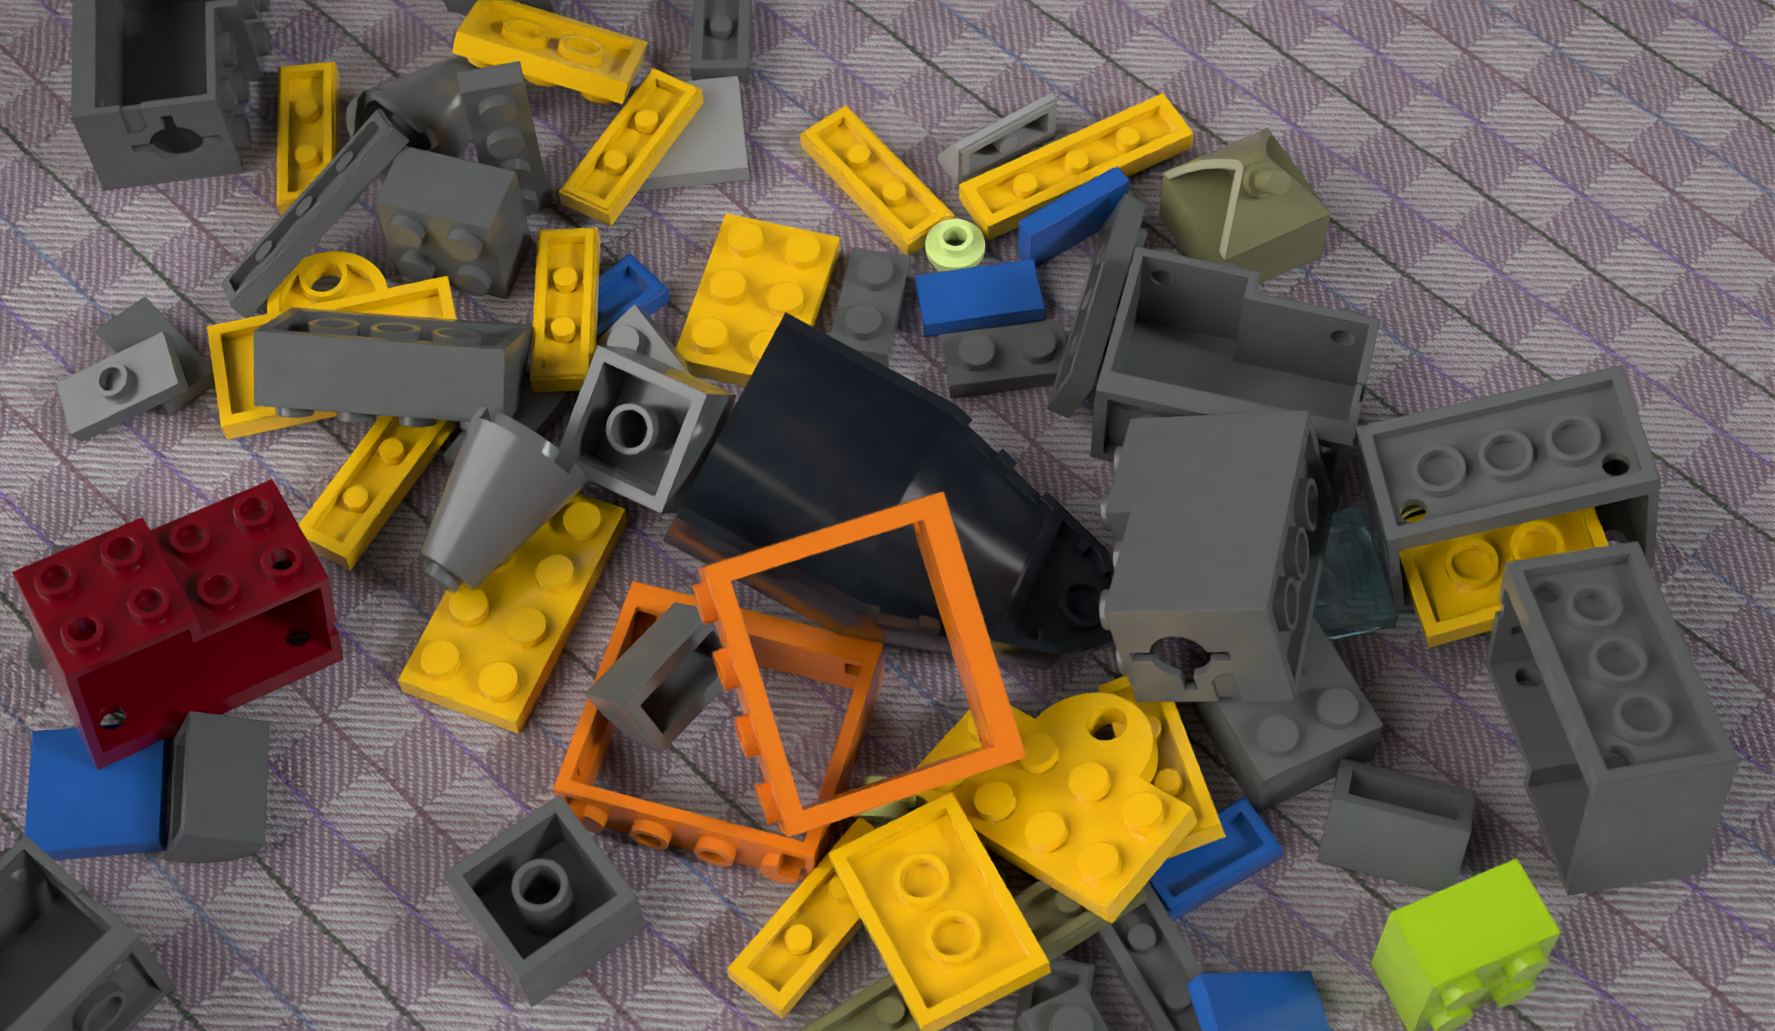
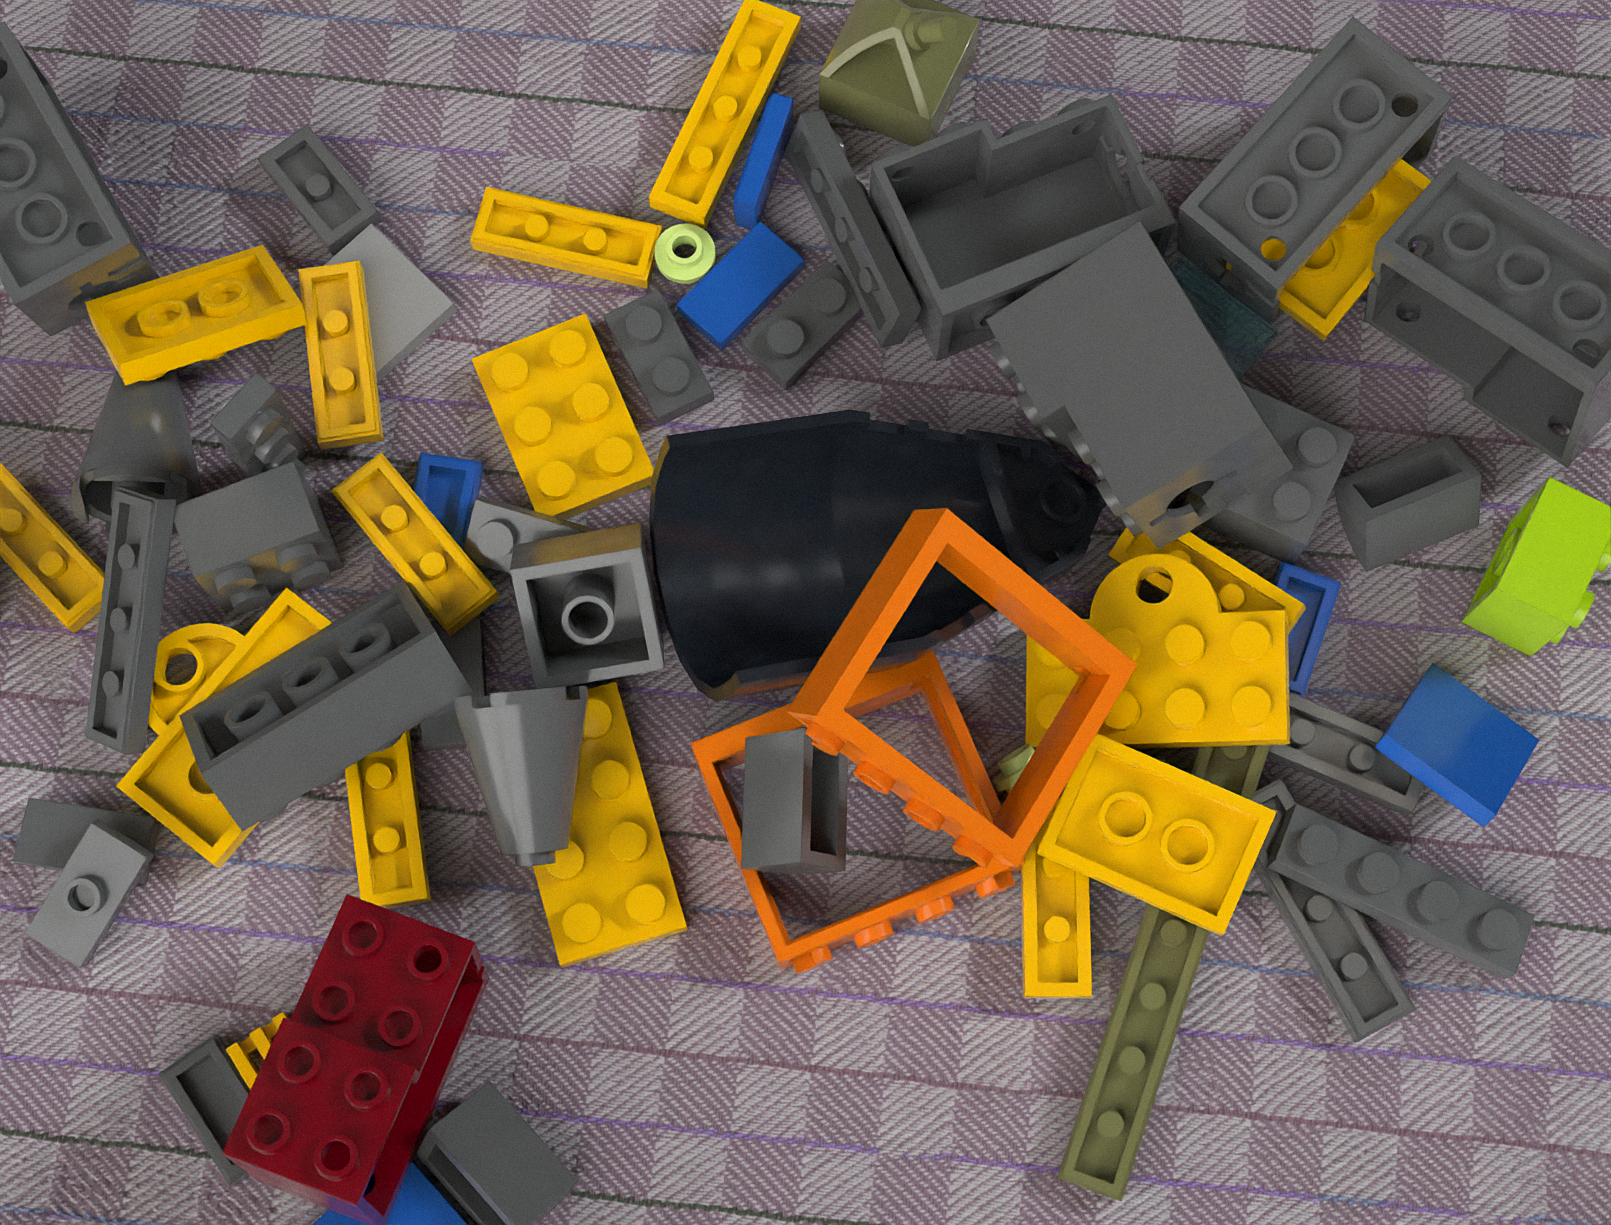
camera: 40 degrees left, 15 degrees up
(545, 900) = (847, 1053): dark grey brick -> none
(1001, 140) = (639, 129): light grey slope -> none

